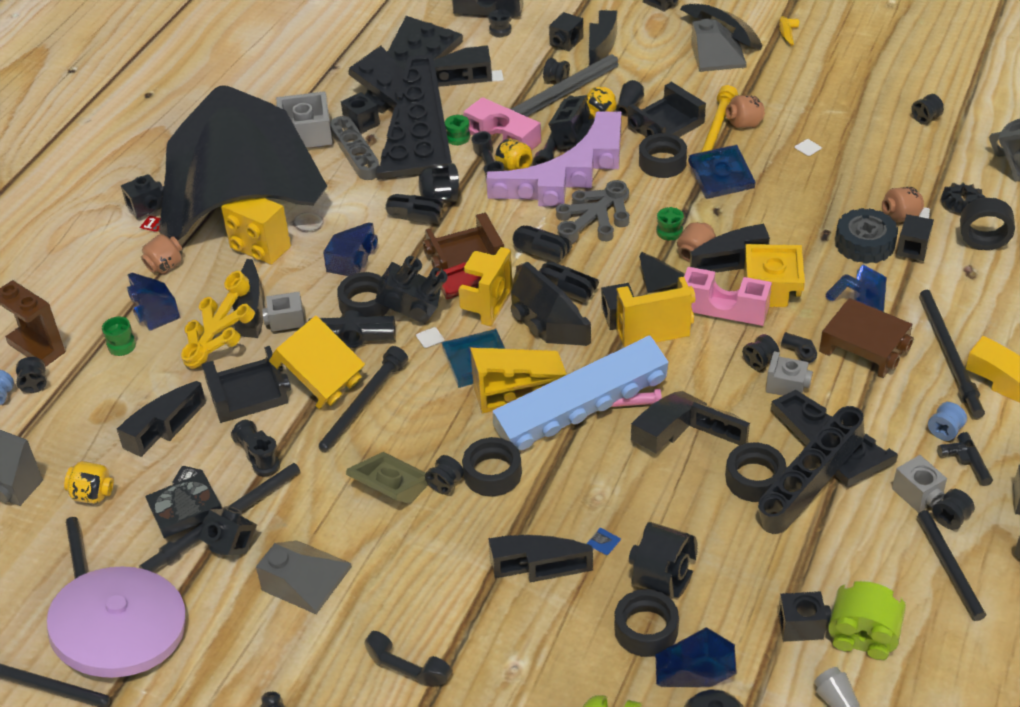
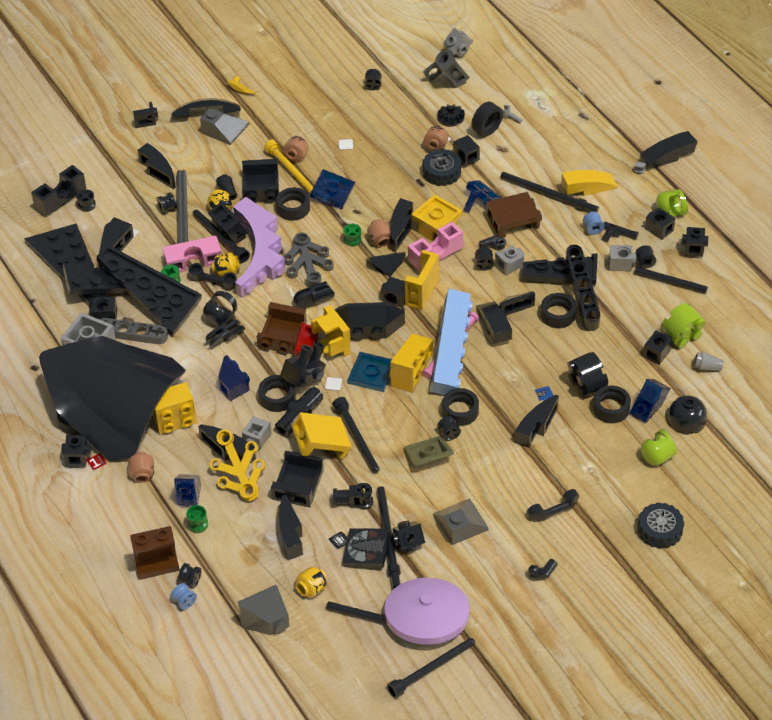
camera: 55 degrees left, 5 degrees up
(566, 31) = (132, 176): black brick -> none
(570, 281) = (362, 296): black arm -> none

